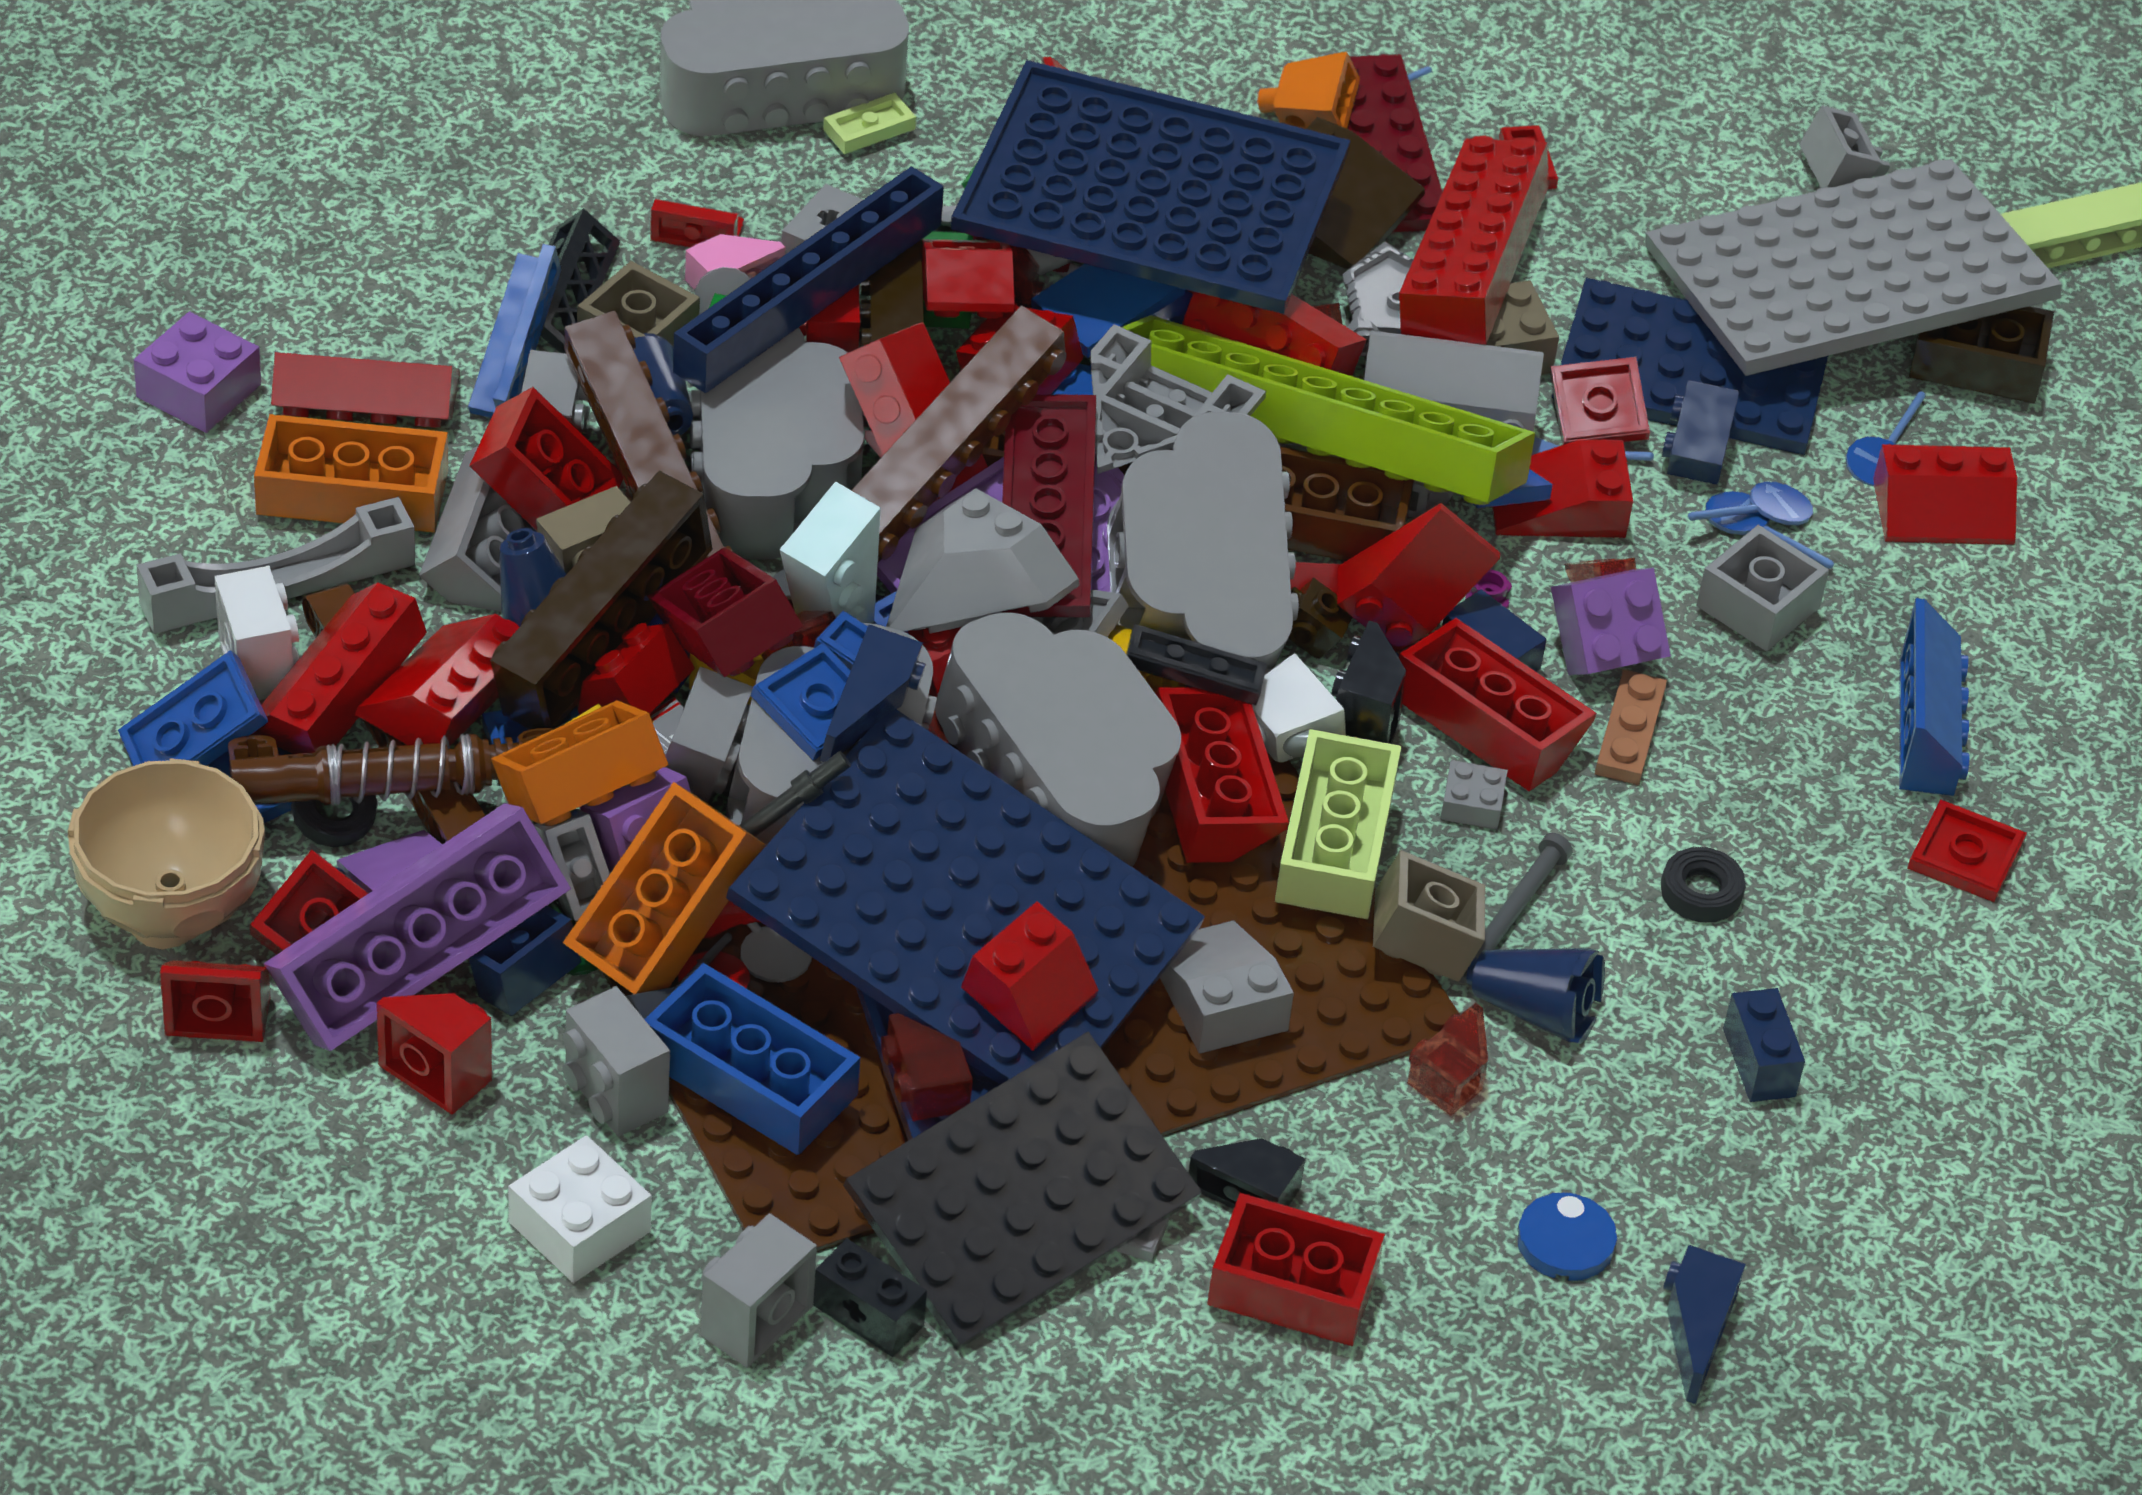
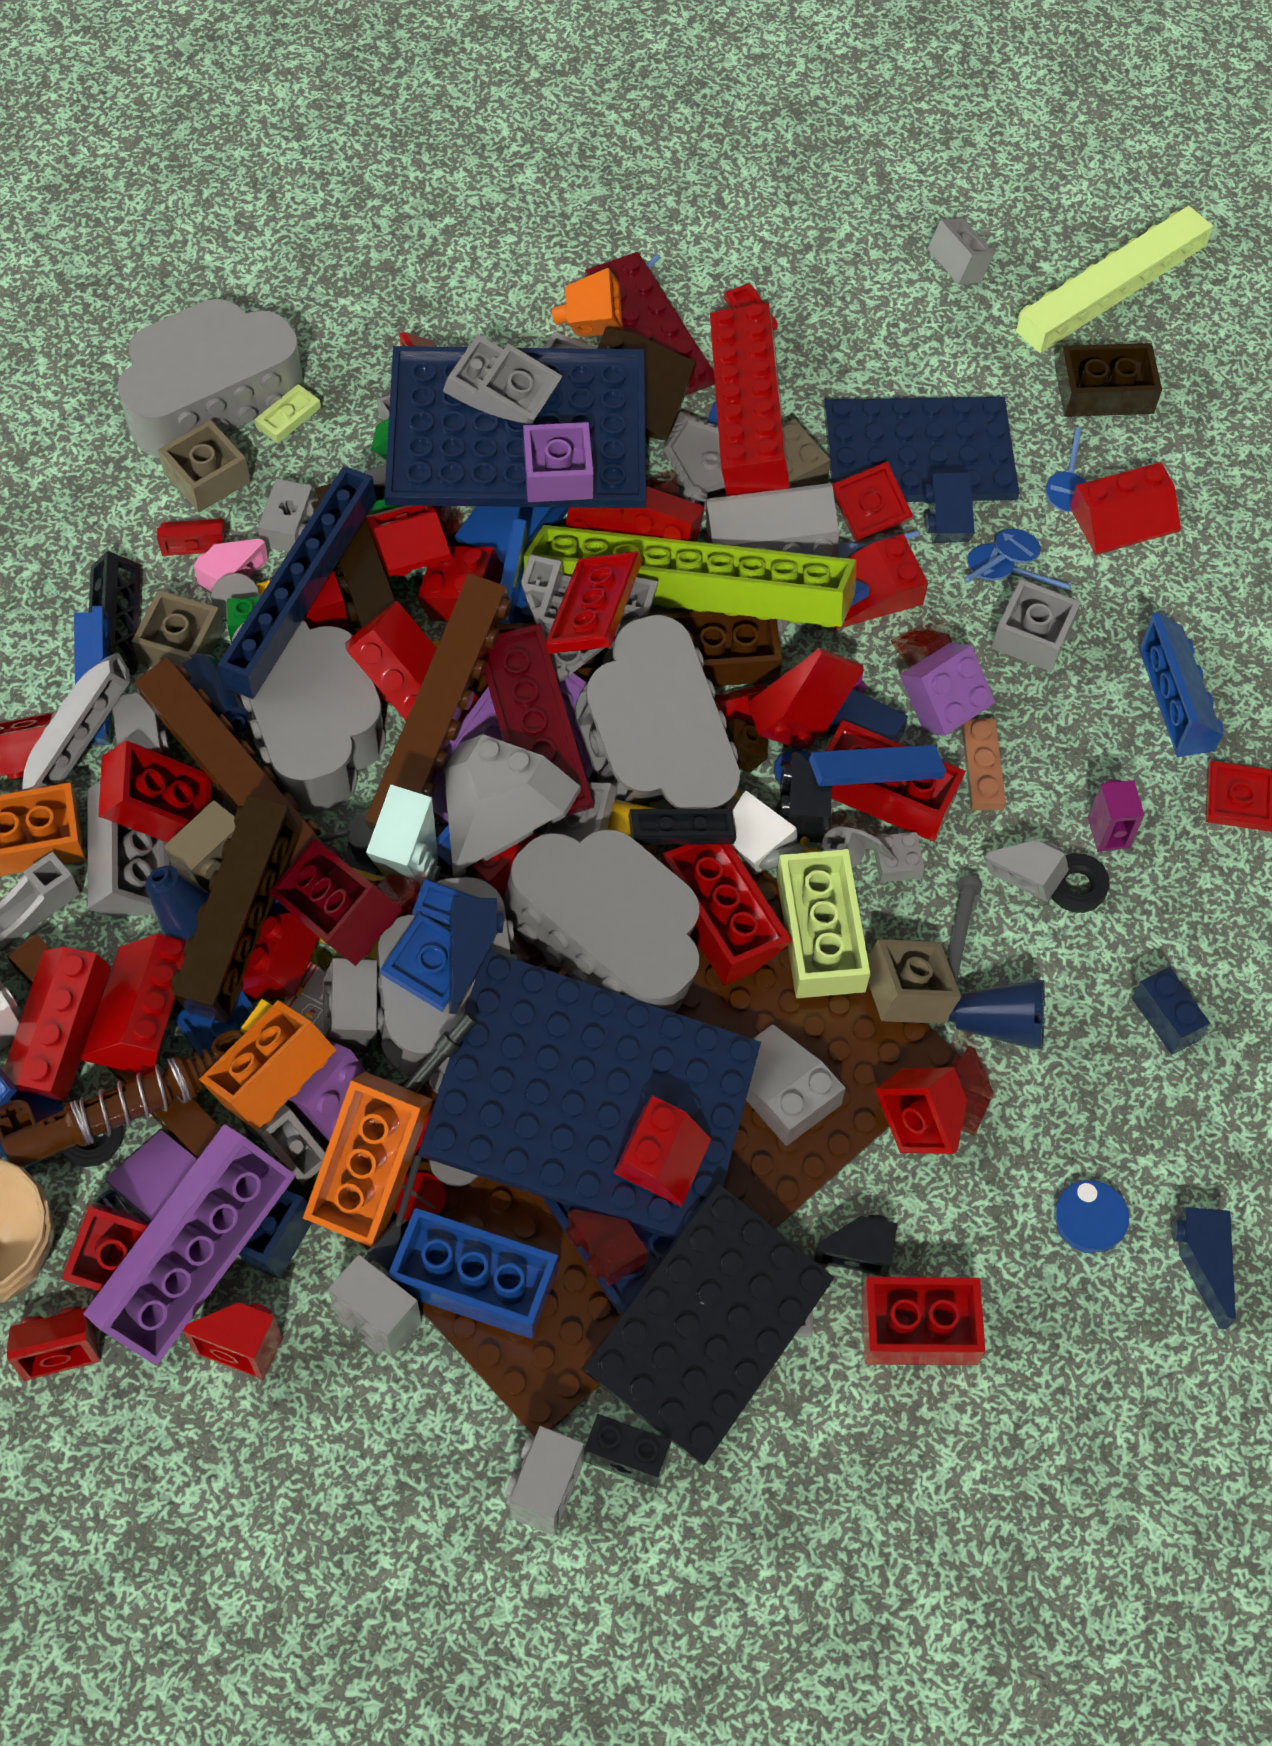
camera: 15 degrees left, 15 degrees up
(479, 365) = (76, 723): none -> light grey brick
(579, 1208) = (388, 1444): white brick -> none
(740, 150) = (204, 465): none -> dark tan brick
(1097, 319) = (514, 564): none -> blue tile
(1147, 124) = (501, 381): none -> light grey slope
(1173, 390) = (594, 603): none -> red tile
(1184, 224) = (558, 462): none -> medium lavender brick
(1387, 1047) = (924, 1109): none -> red slope
(1420, 759) = (854, 840): none -> light grey panel
(1476, 666) = (877, 765): none -> blue tile
(1640, 841) = (1030, 867): none -> light grey slope
(1777, 815) = (1115, 815): none -> magenta brick
(1851, 266) = (1004, 345): light grey plate -> none

